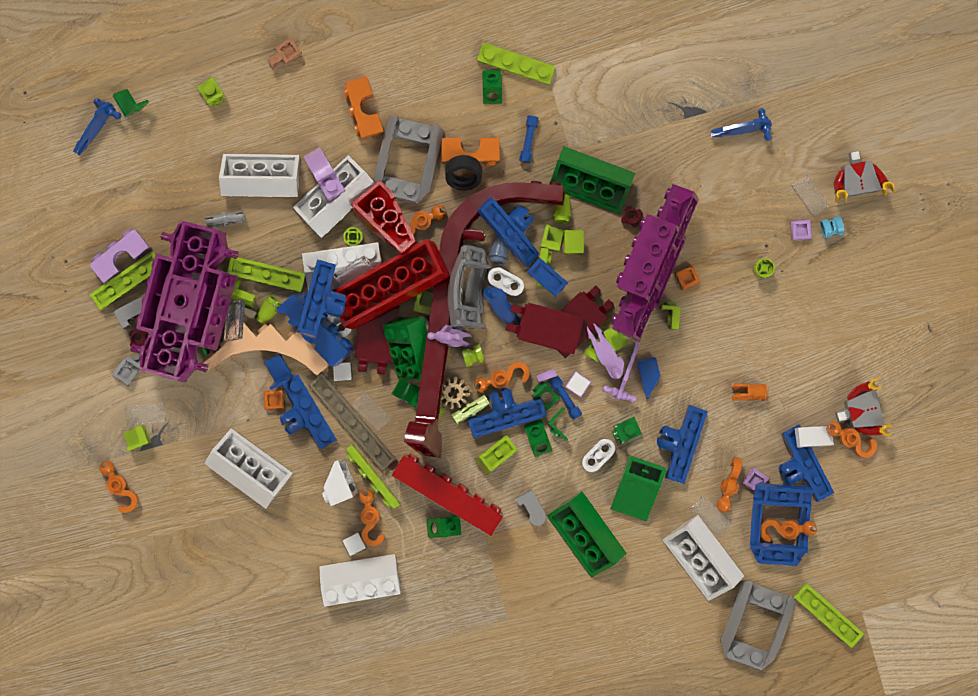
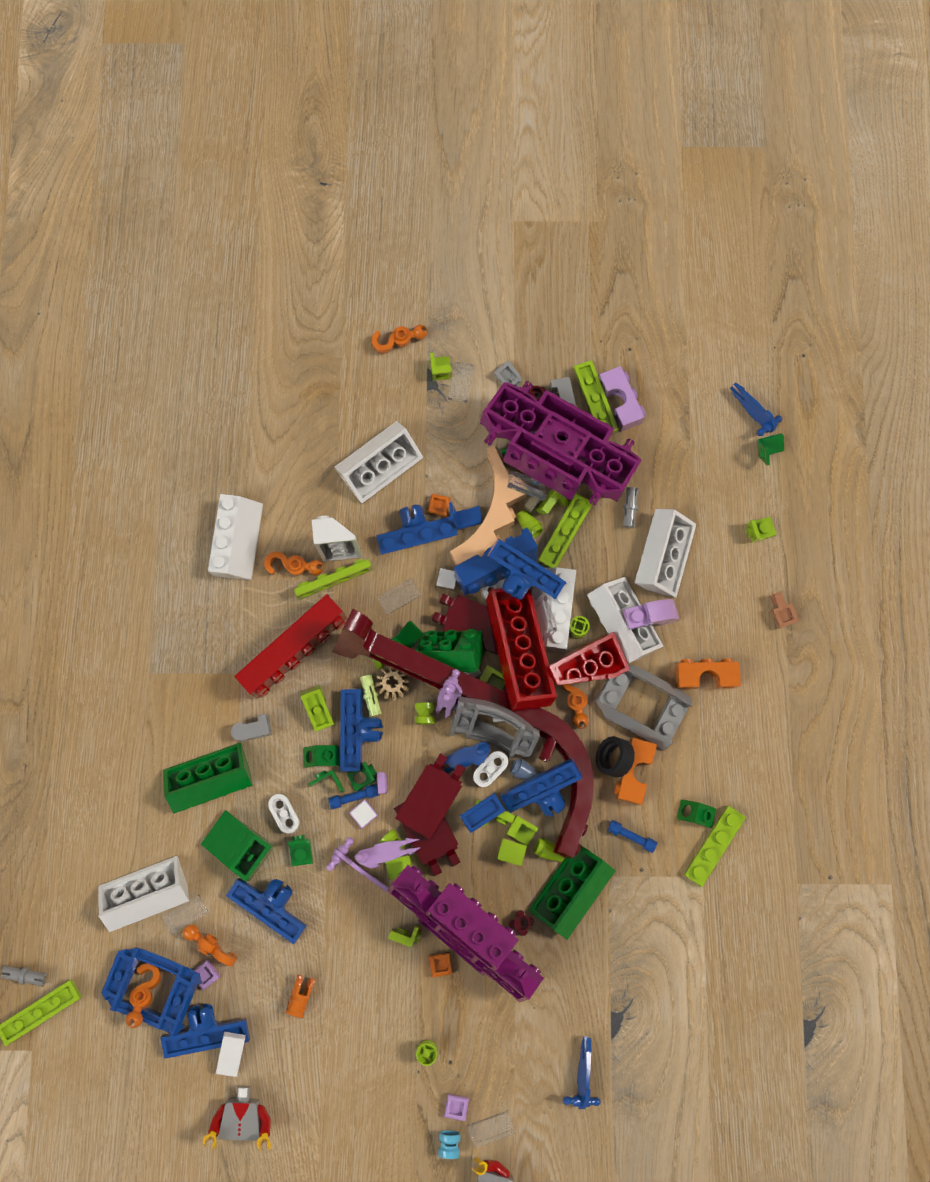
camera: 110 degrees right, 10 degrees down
(352, 421) = (394, 575): dark tan tile -> none
(354, 544) = (273, 542): white tile -> none
(445, 527) = (260, 635): green bracket -> none
(501, 378) = (393, 735): orange piece -> none
(649, 375) = (350, 892): blue slope -> none
(765, 599) = (80, 946): light grey wedge -> none
(802, 639) = (24, 975): none -> light grey pin
(851, 438) = (215, 1096): orange piece -> none

